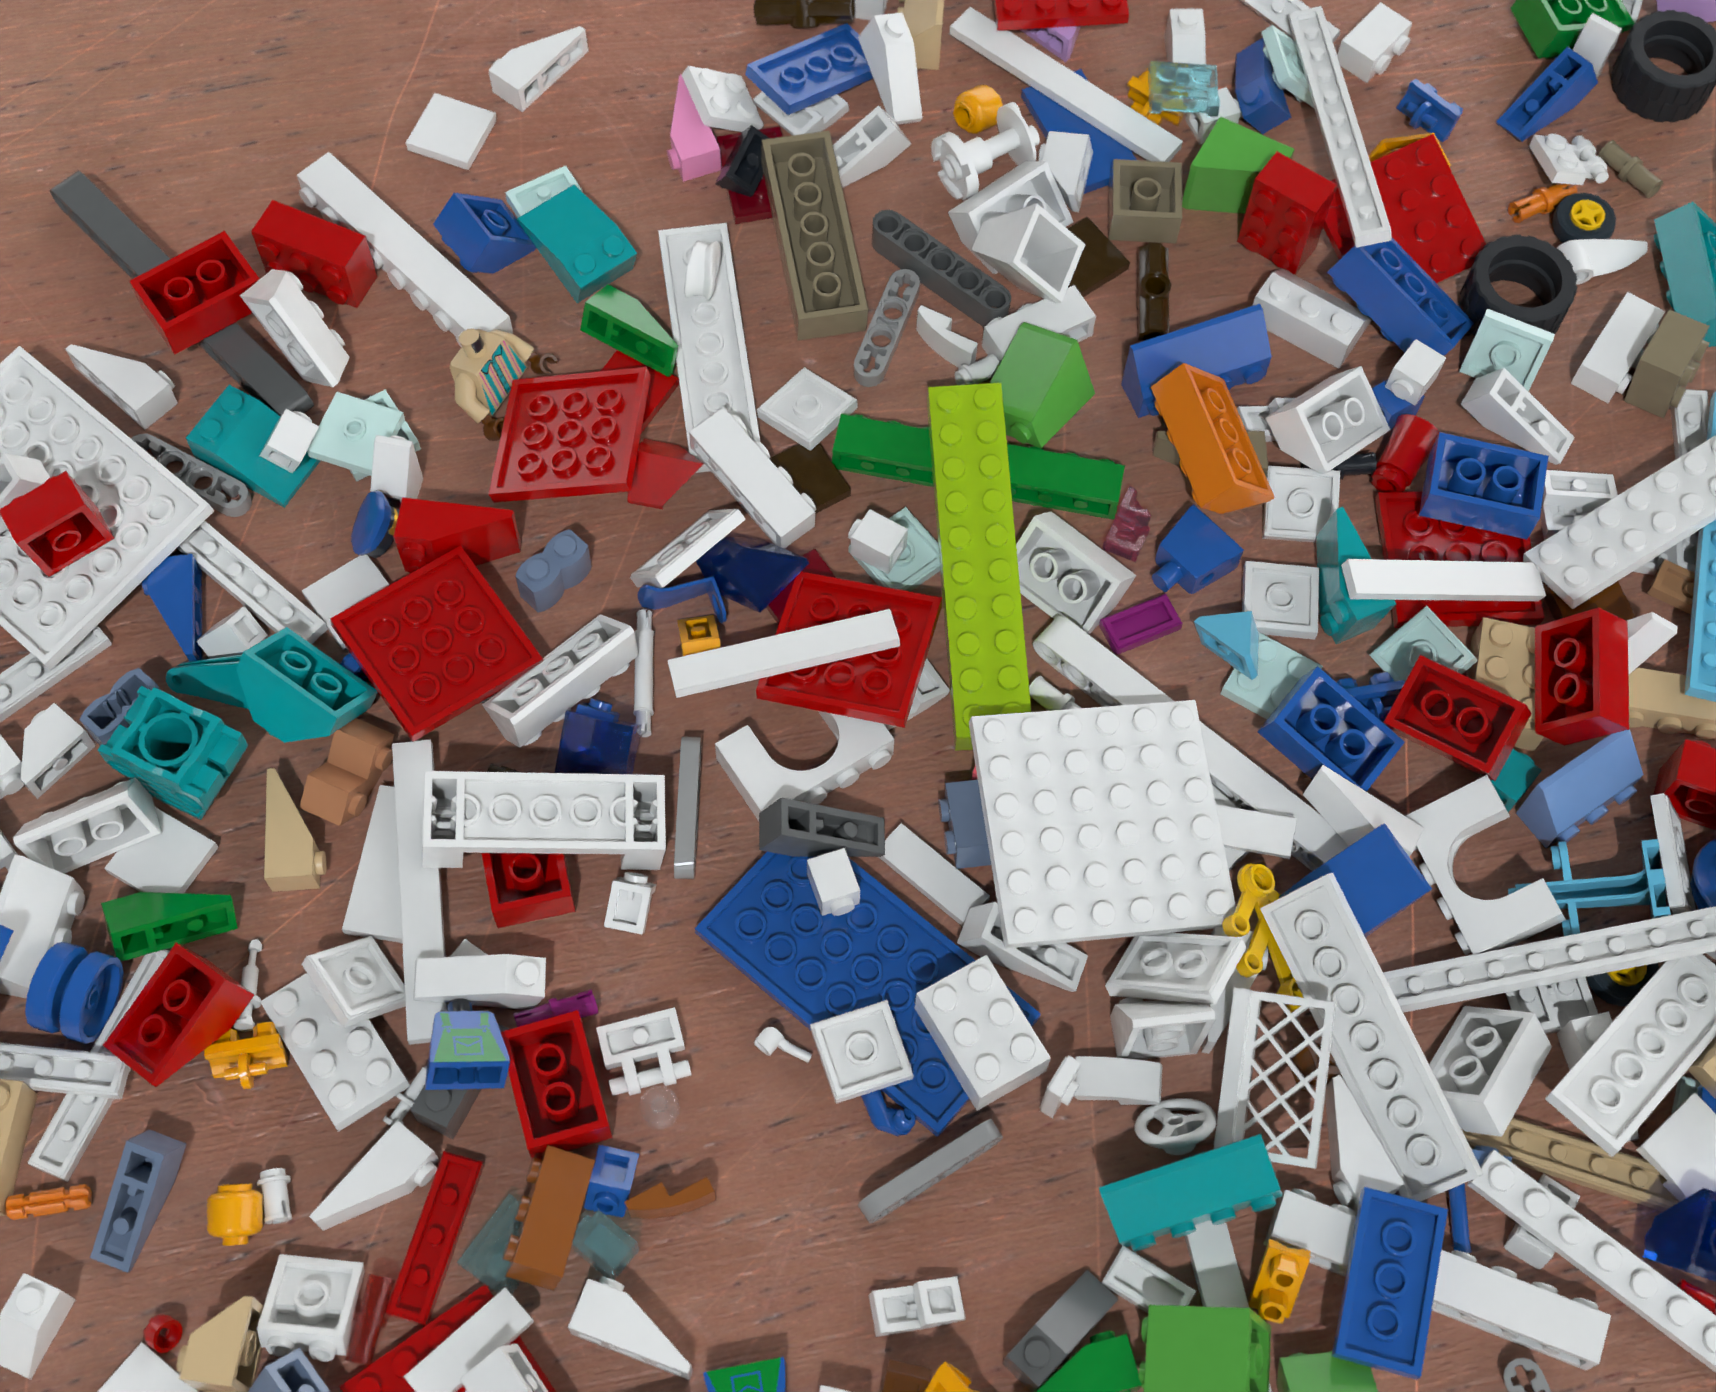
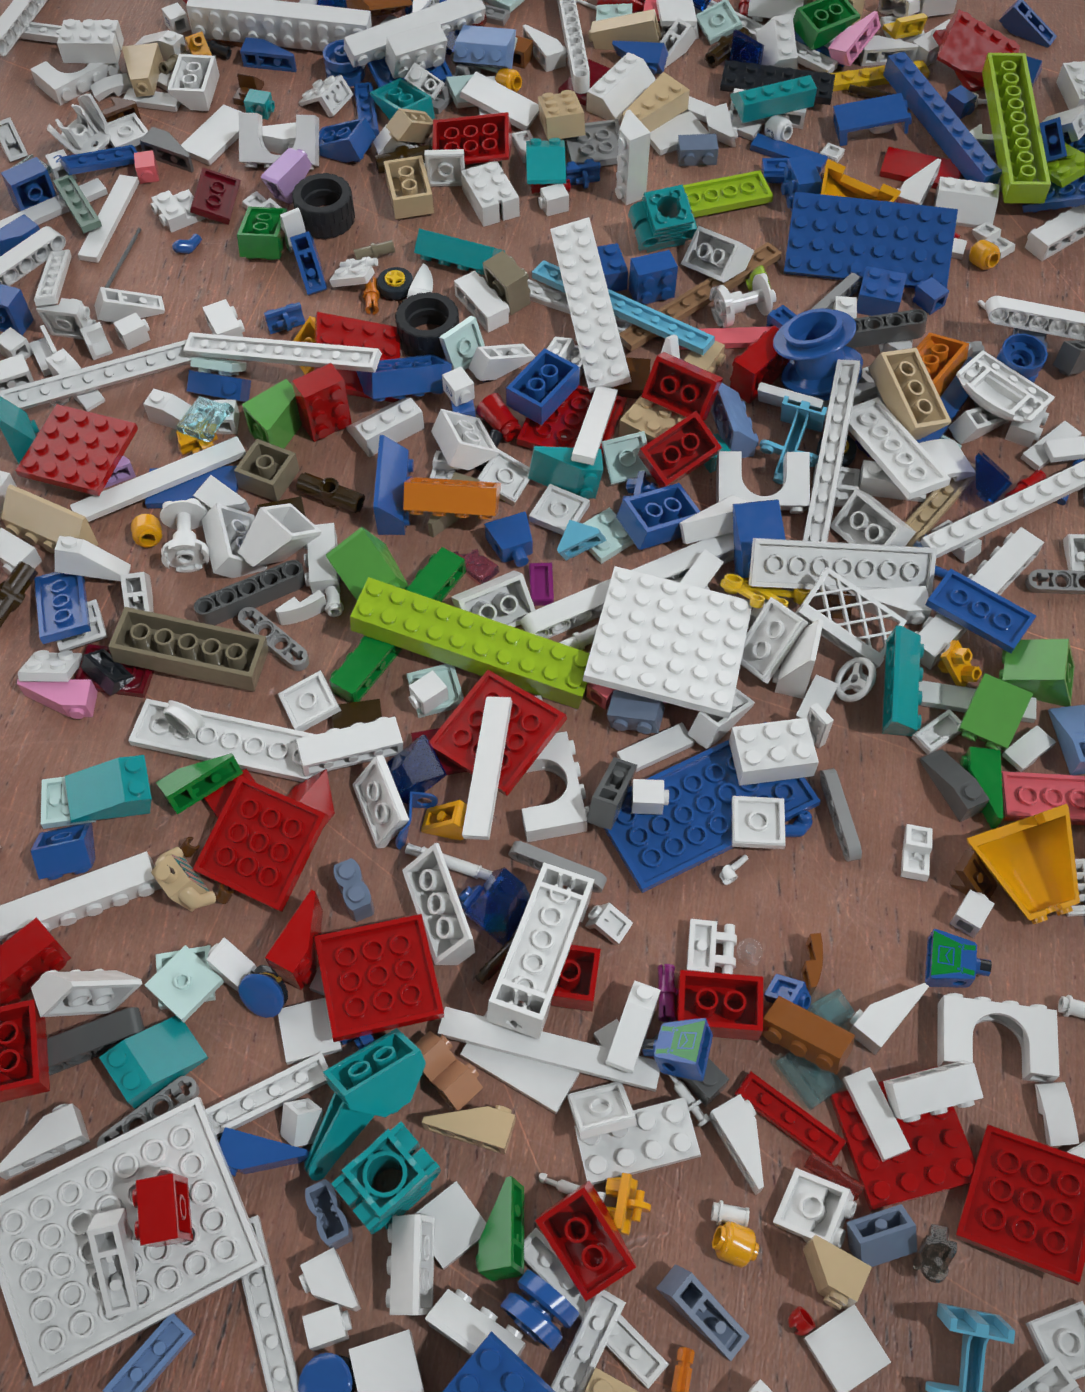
camera: 65 degrees left, 5 degrees down
(289, 440) = (168, 1028): white brick -> none

